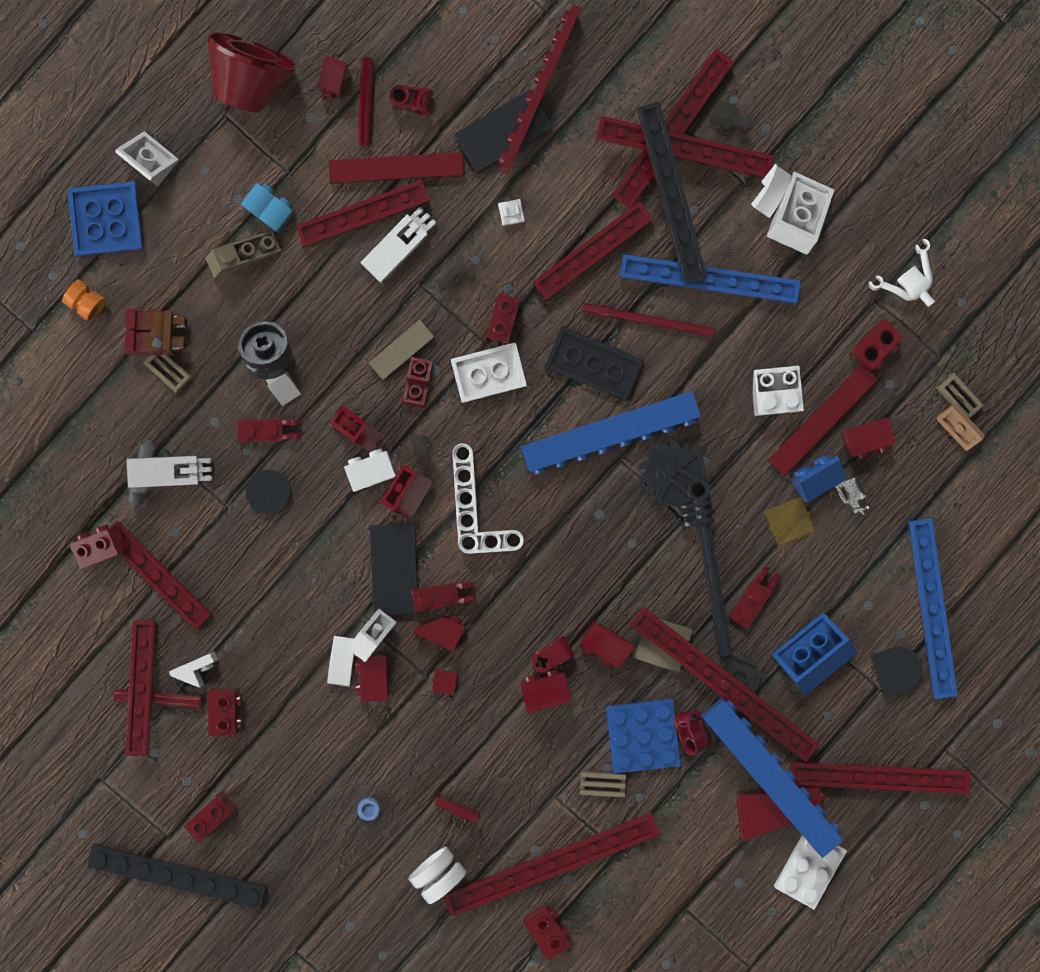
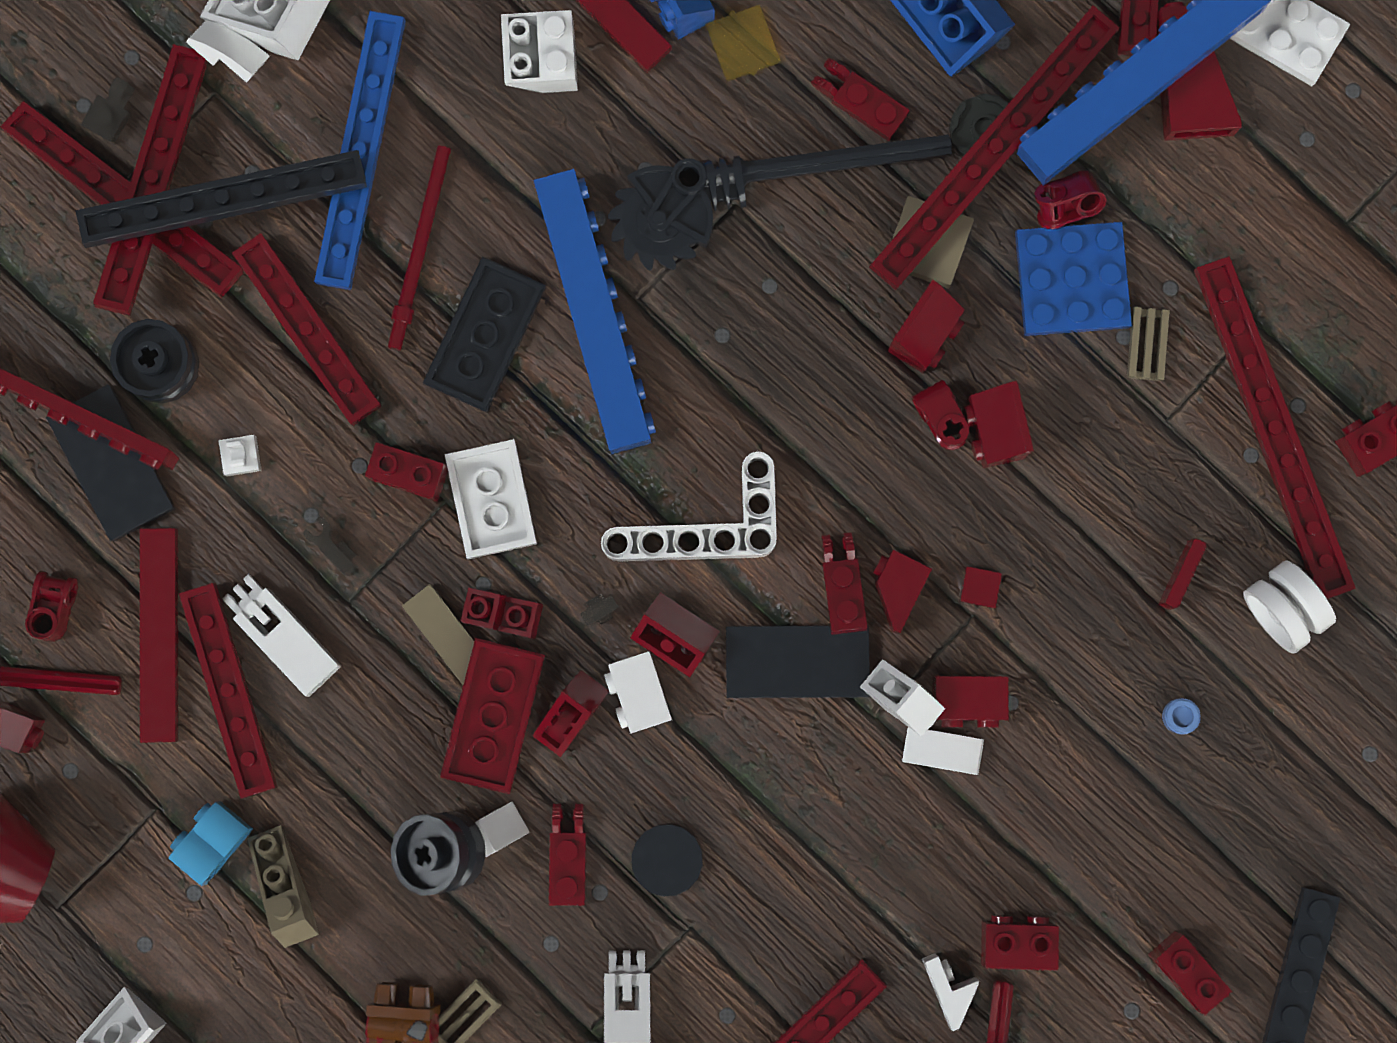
camera: 80 degrees left, 5 degrees down
(353, 379) = (492, 715): none -> dark red tile
(568, 142) = (173, 355): none -> black wheel

